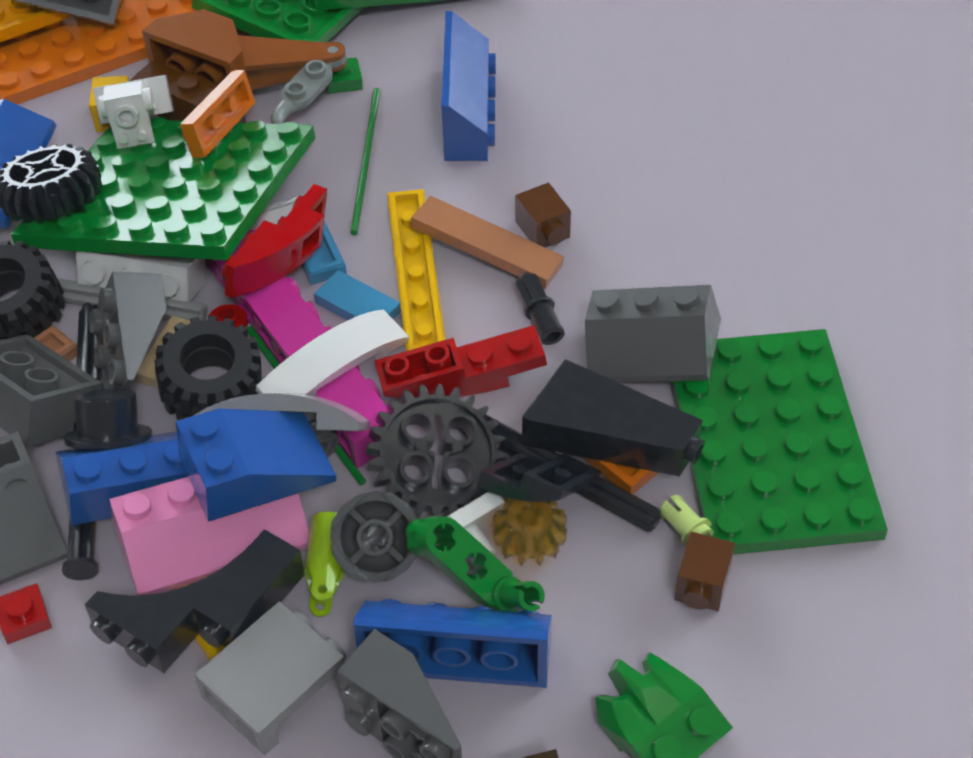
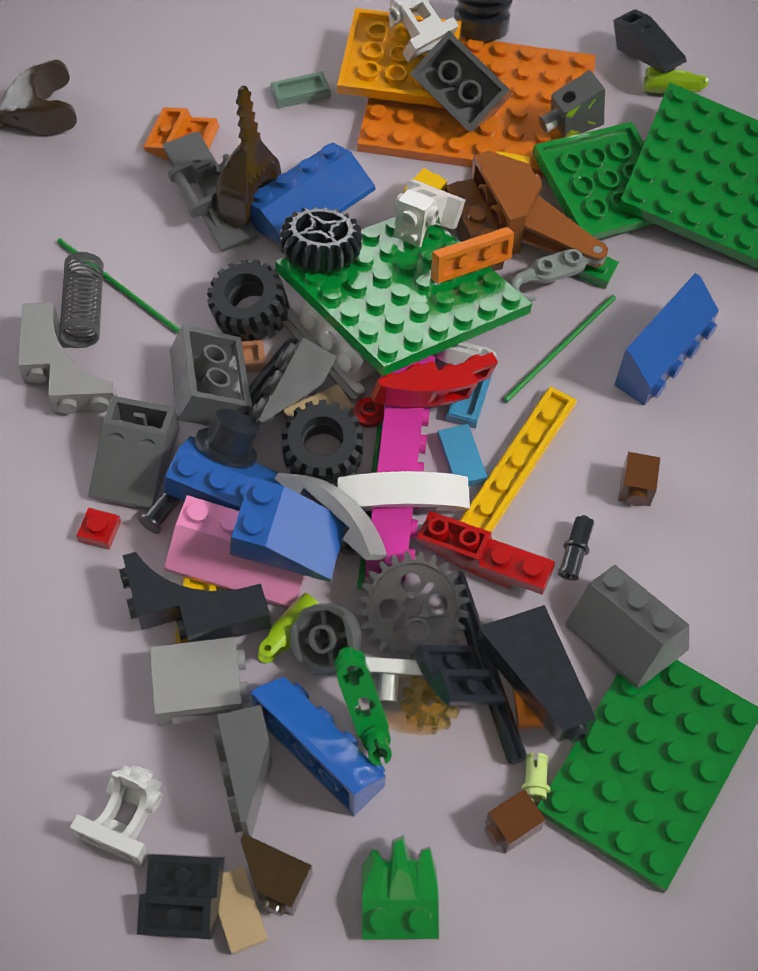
camera: 35 degrees right, 10 degrees up
(486, 240) = (584, 472): nougat tile -> none

